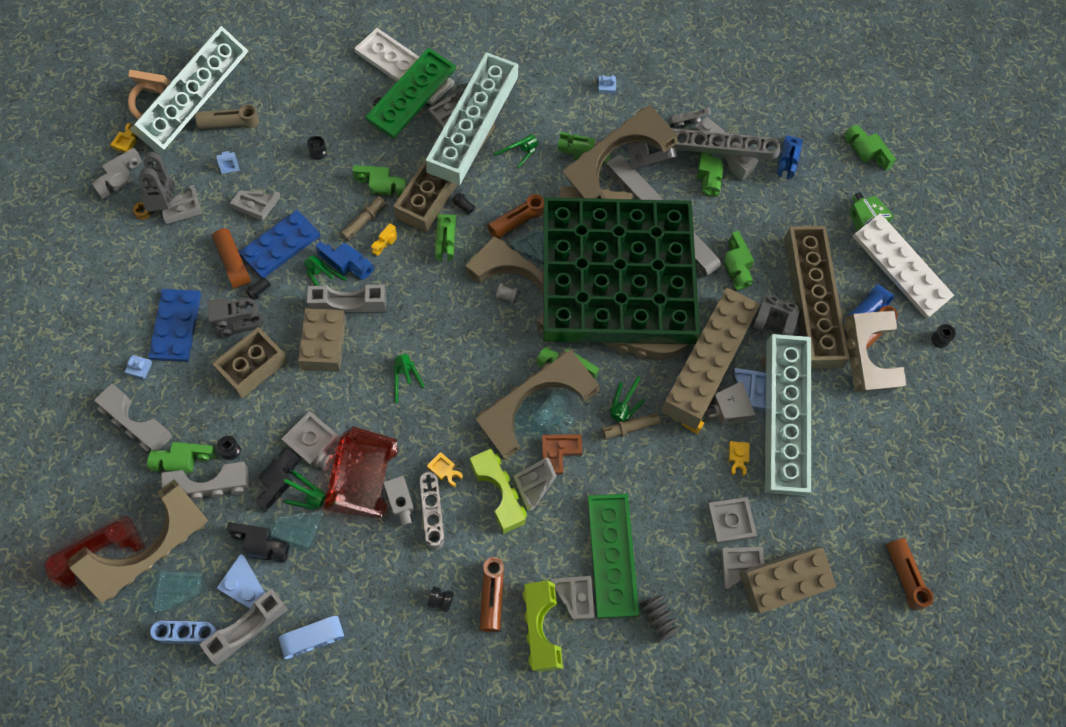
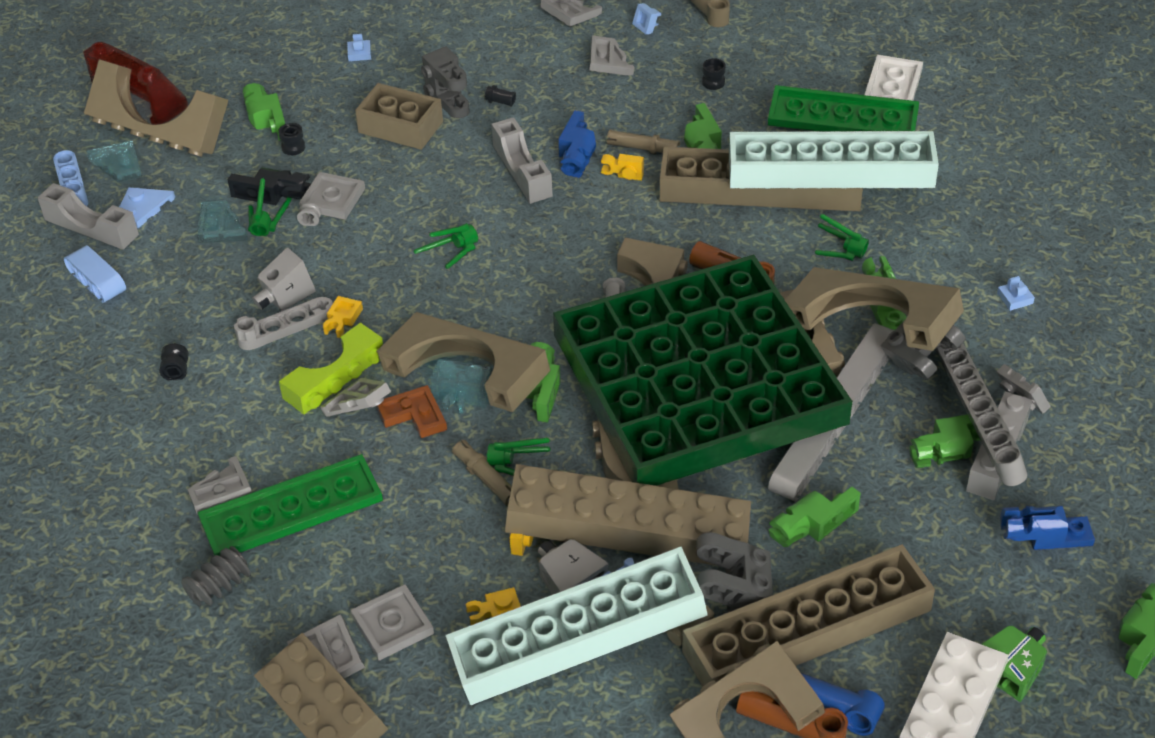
camera: 75 degrees right, 20 degrees down
(116, 404) = (303, 48): light grey arch -> none
(175, 325) = (406, 59): blue plate -> none
(231, 259) = (509, 73): dark orange piece -> none
(231, 479) = (252, 151): light grey arch -> none
(259, 542) = (188, 197): black plate -> none
(279, 244) = (568, 93): blue plate -> none
(316, 266) = (552, 127): green plant -> none
(322, 340) = (459, 160): dark tan brick -> none
(360, 473) = (320, 241): clear red windscreen -> none
(445, 237) = (659, 214): bright green plate -> none
(460, 200) = (724, 212): black pin -> none
(491, 616) = (221, 398): dark orange piece -> none
(539, 600) = (137, 471): lime arch -> none

